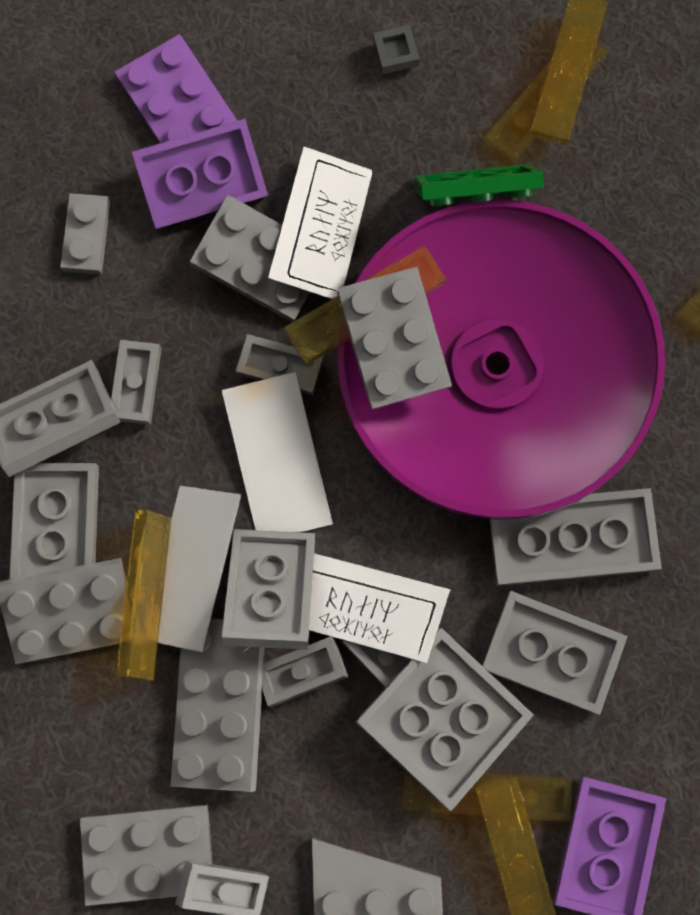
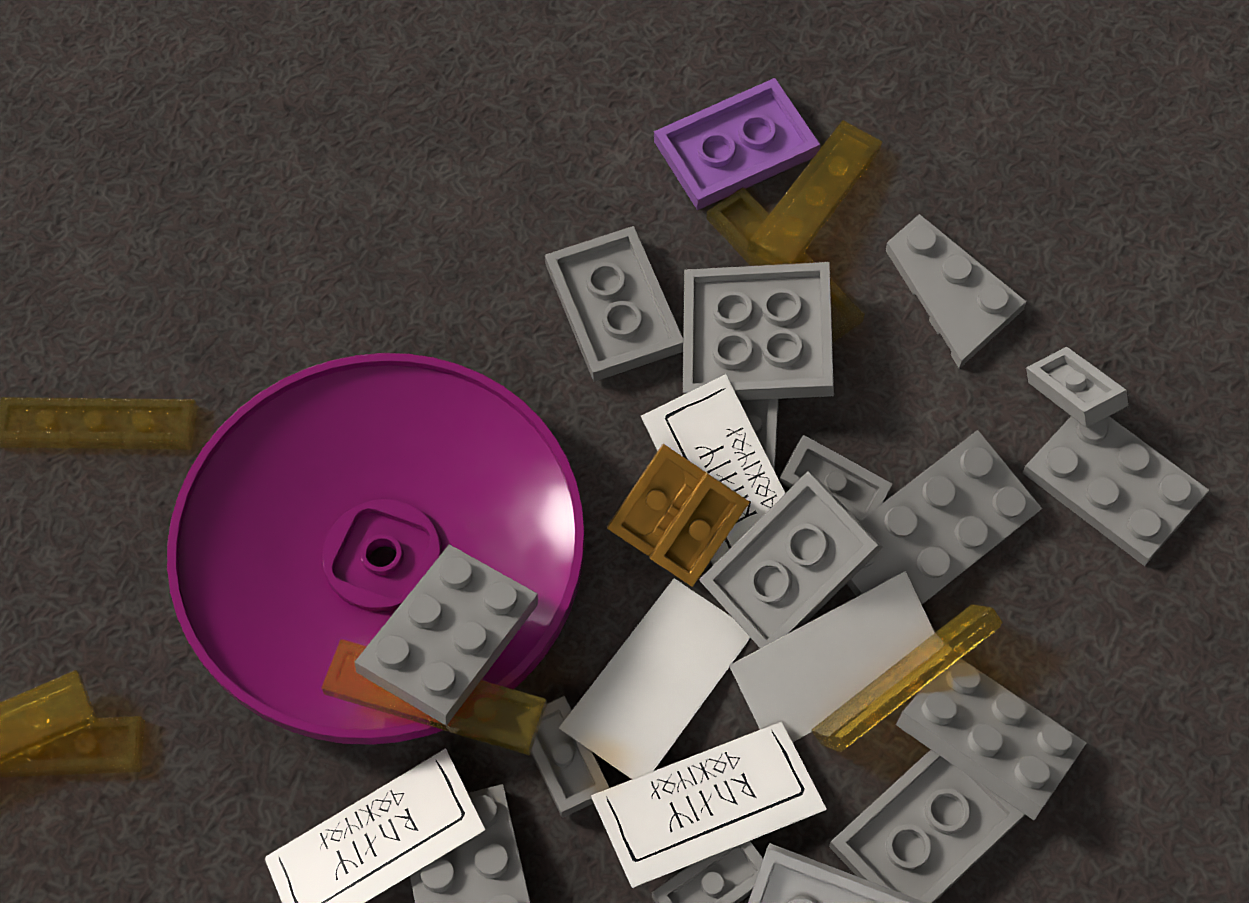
camera: 130 degrees left, 15 degrees down
(178, 417) = (707, 804): none -> white sticker
(366, 556) = (677, 515): none -> pearl gold slope
(479, 184) = (200, 715): green plate -> none
(586, 539) = (474, 332): light grey plate -> none

